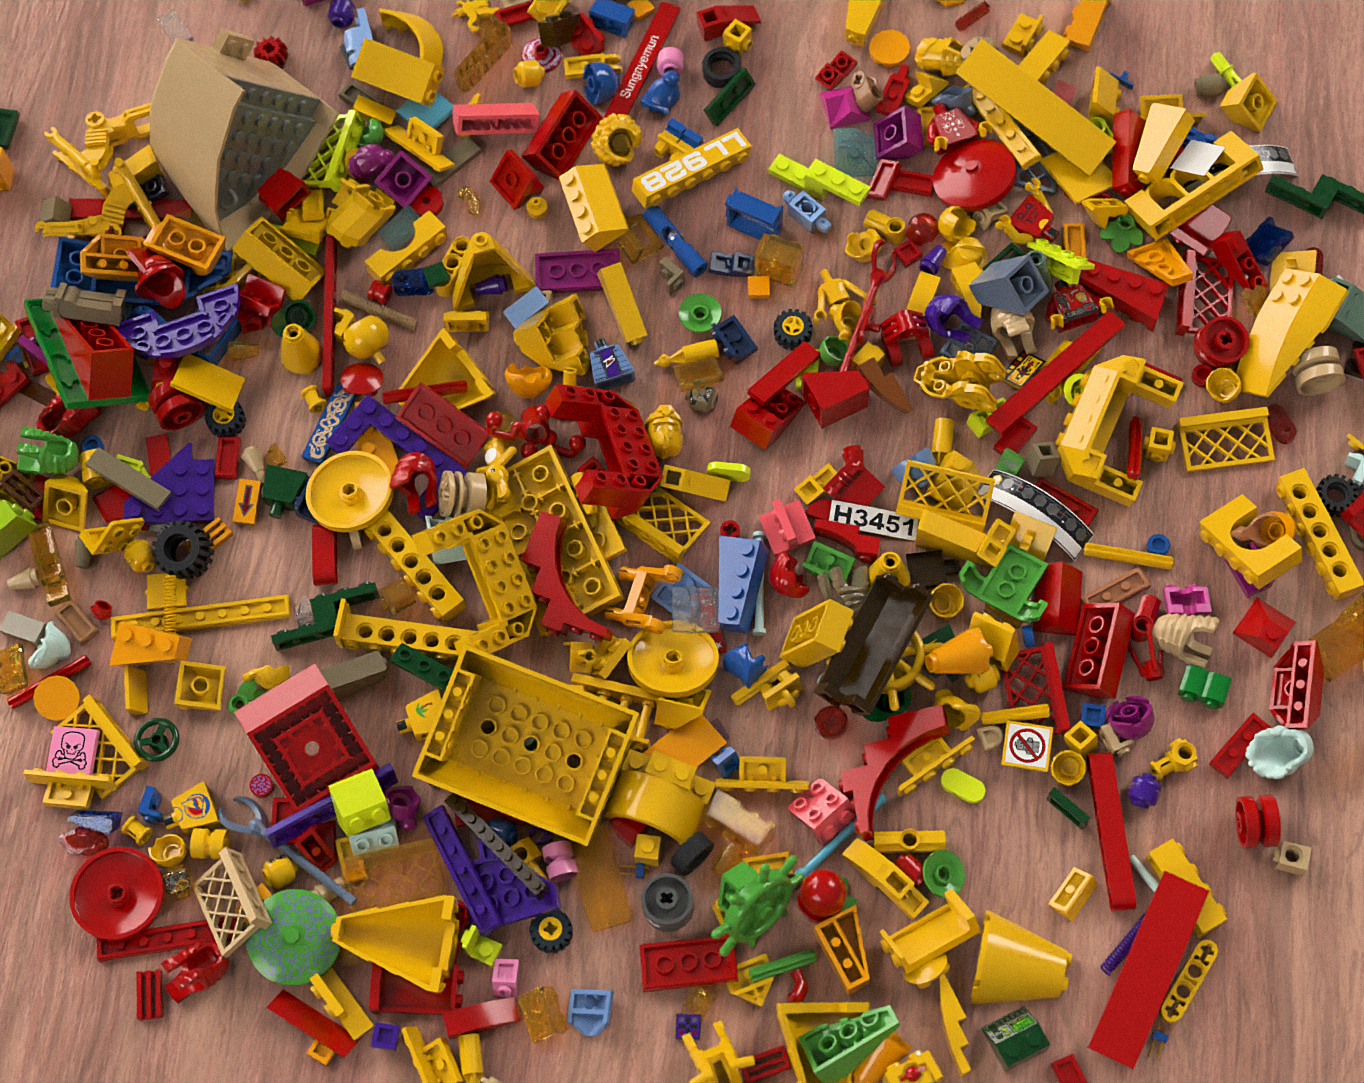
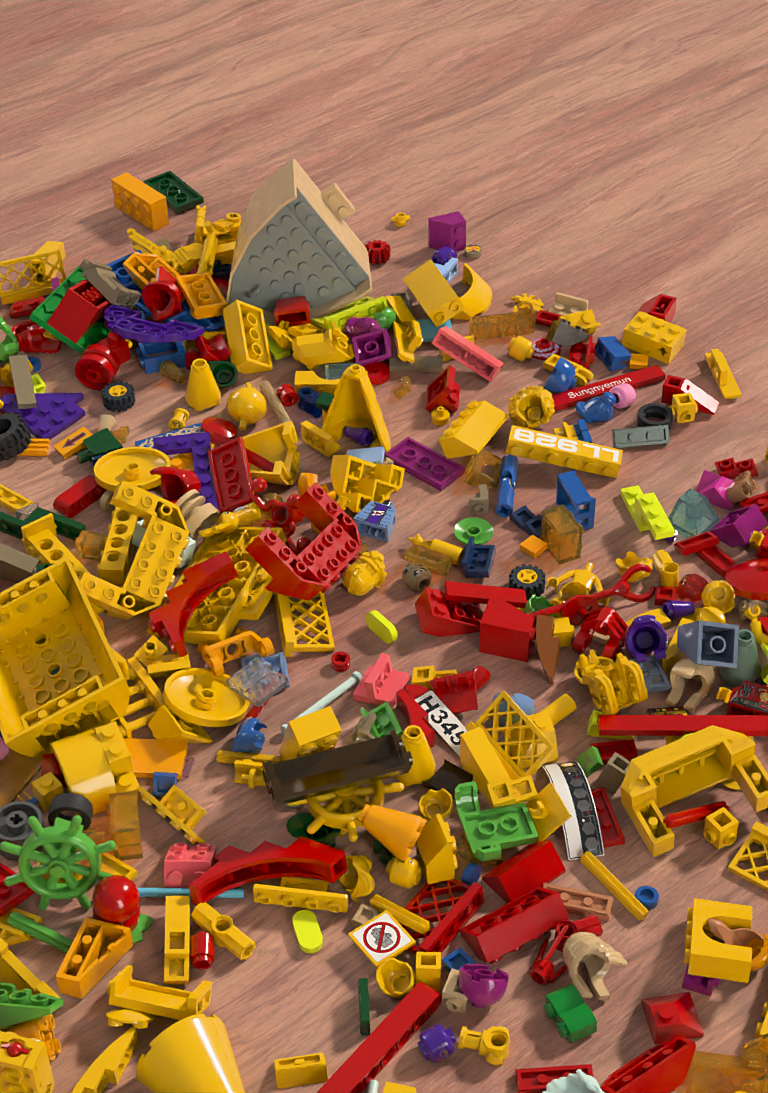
camera: 40 degrees right, 25 degrees down
(157, 451) = (63, 386): red tile -> none
(208, 382) = (127, 367): yellow piece -> none
(227, 458) = (92, 417): red tile -> none
(330, 295) = (256, 377): red tile -> none
(562, 135) = (500, 386): red slope -> none
(622, 303) = (427, 488): yellow slope -> none
(695, 483) = (349, 614): yellow slope -> none
(740, 578) = (305, 688): wedge -> none
(784, 579) = (345, 705): red piece -> none
(800, 989) = (37, 958): red arm -> none
(804, 202) = (618, 526): light blue piece -> none
(831, 722) = (262, 816): clear red hair -> none
(951, 872) = (226, 959): bright green dish -> none
(1188, 600) = (630, 947): dark pink cylinder -> none

